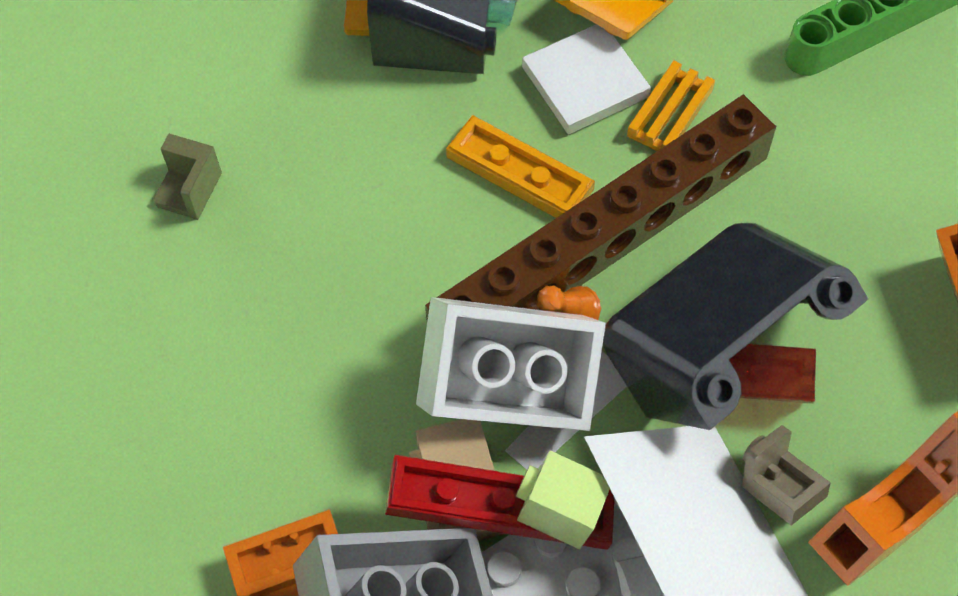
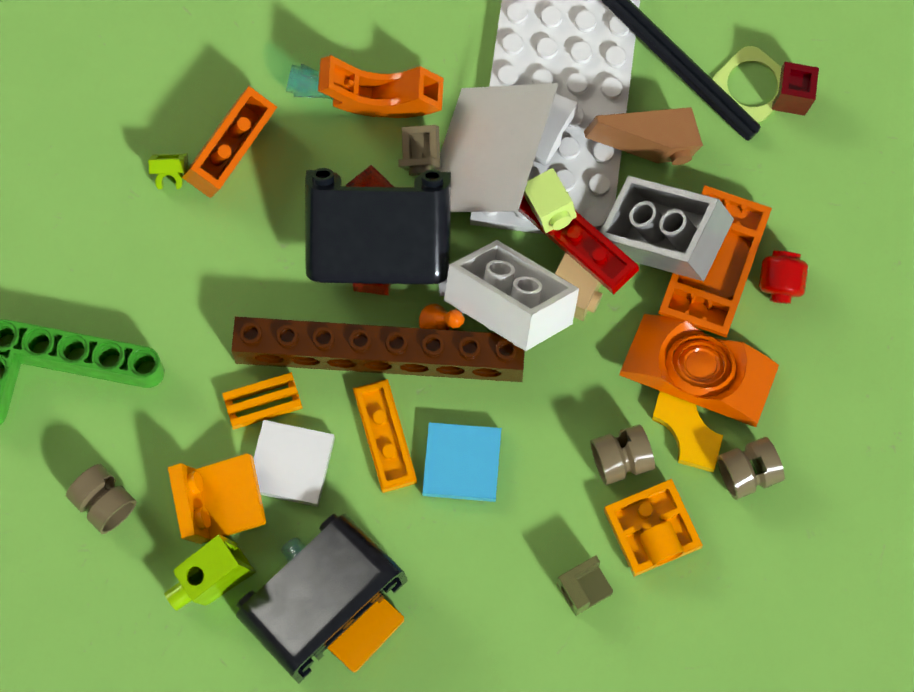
camera: 140 degrees left, 10 degrees up
(80, 420) = (739, 473): none -> dark tan wheel
(153, 282) = (652, 527): none -> light orange plate
(176, 412) = (695, 440): none -> yellow tile
(227, 488) = (700, 368): none -> orange slope
(248, 316) = (622, 454): none -> dark tan wheel
(417, 202) = (462, 462): none -> medium azure tile

